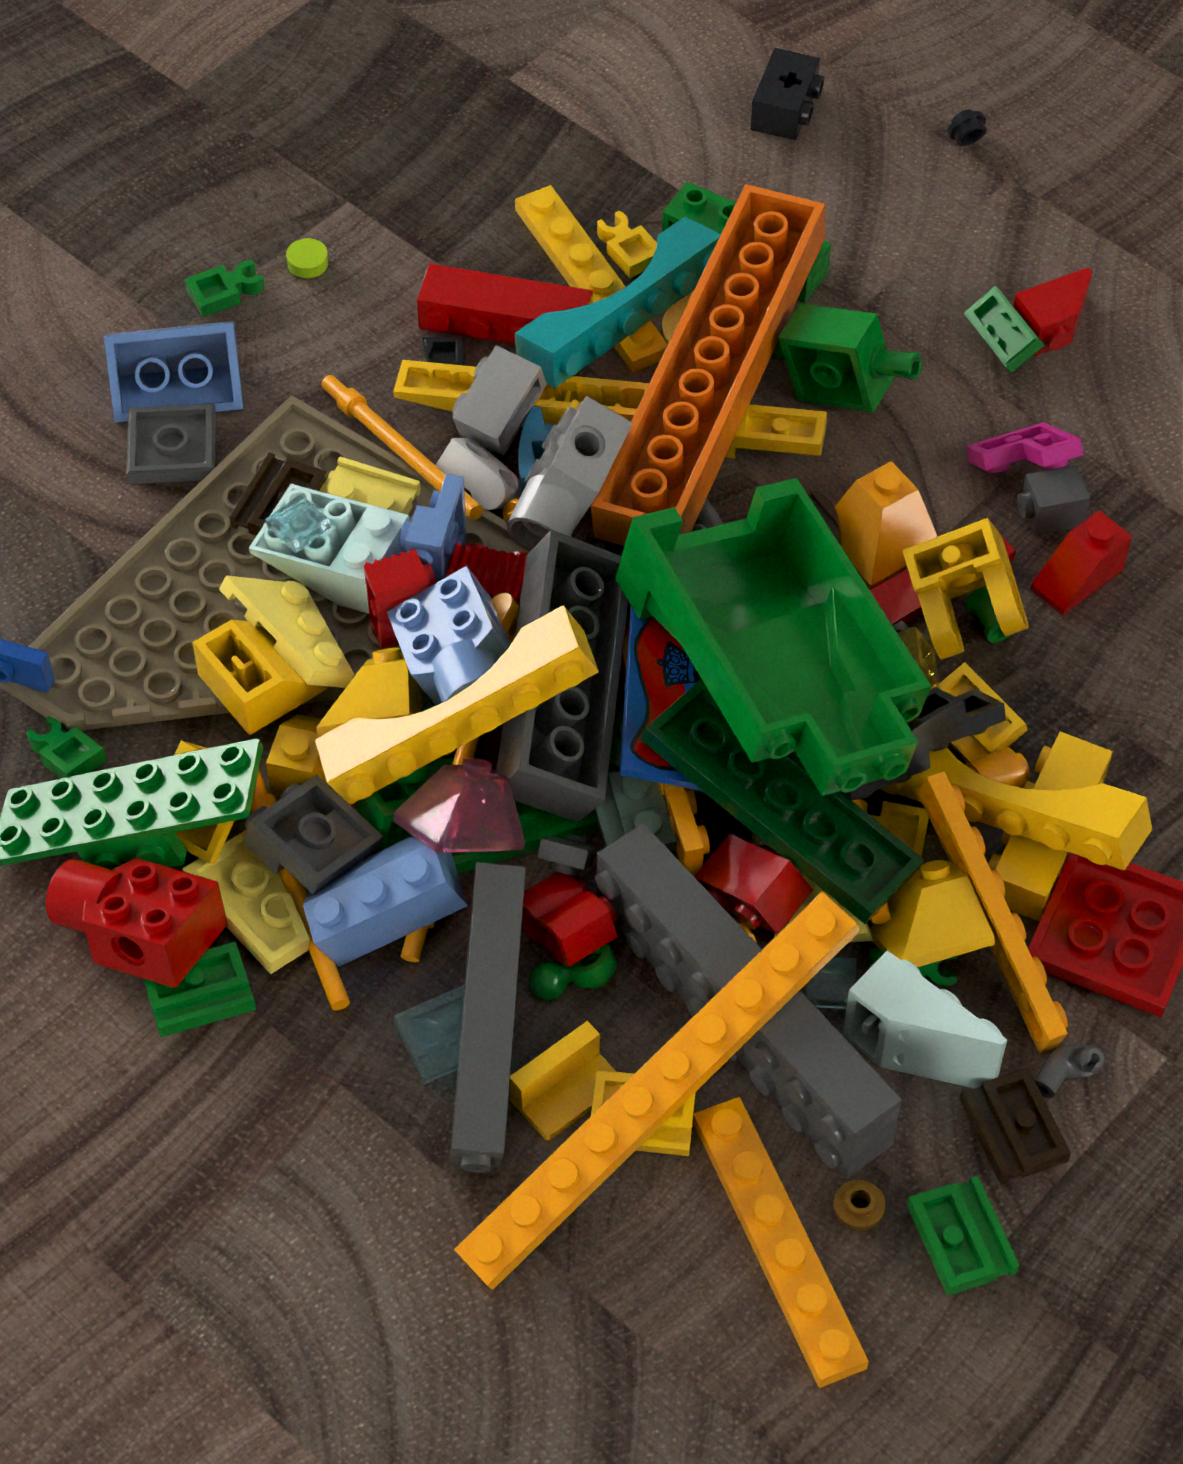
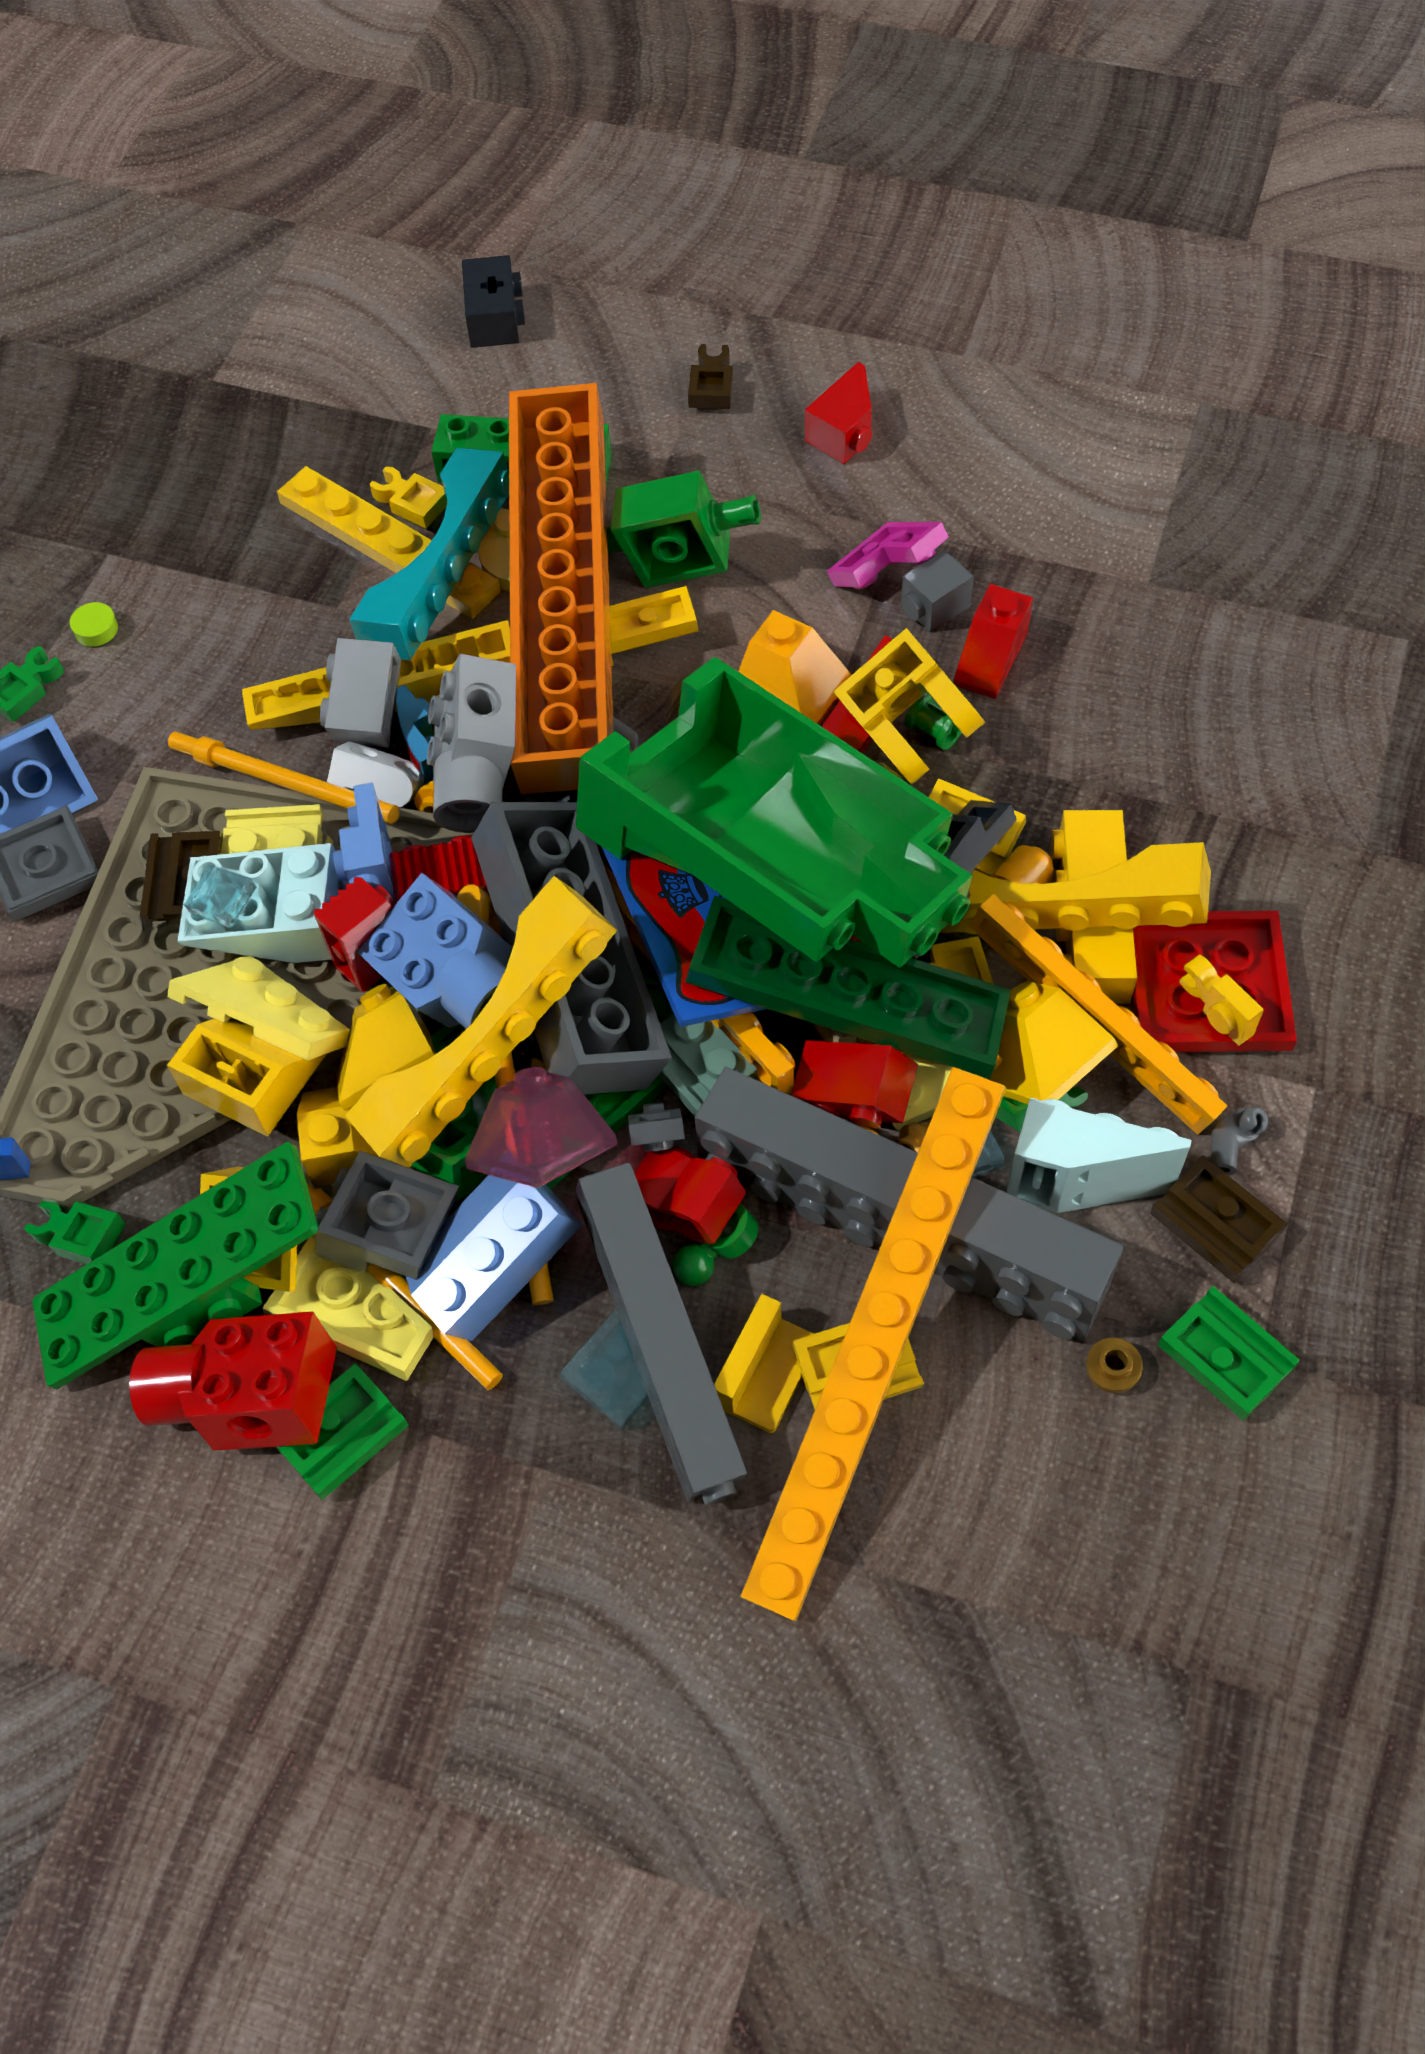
camera: 20 degrees left, 5 degrees up
(444, 350) = (277, 664): black tile -> none
(488, 303) = (303, 601): red brick -> none
(780, 1243) = (1057, 1439): light orange plate -> none
(950, 237) = (711, 380): none -> dark brown plate
(967, 127) = (676, 274): black plate -> none
(1003, 329) = (806, 448): green plate -> none
(1112, 952) = (1226, 1003): none -> yellow plate

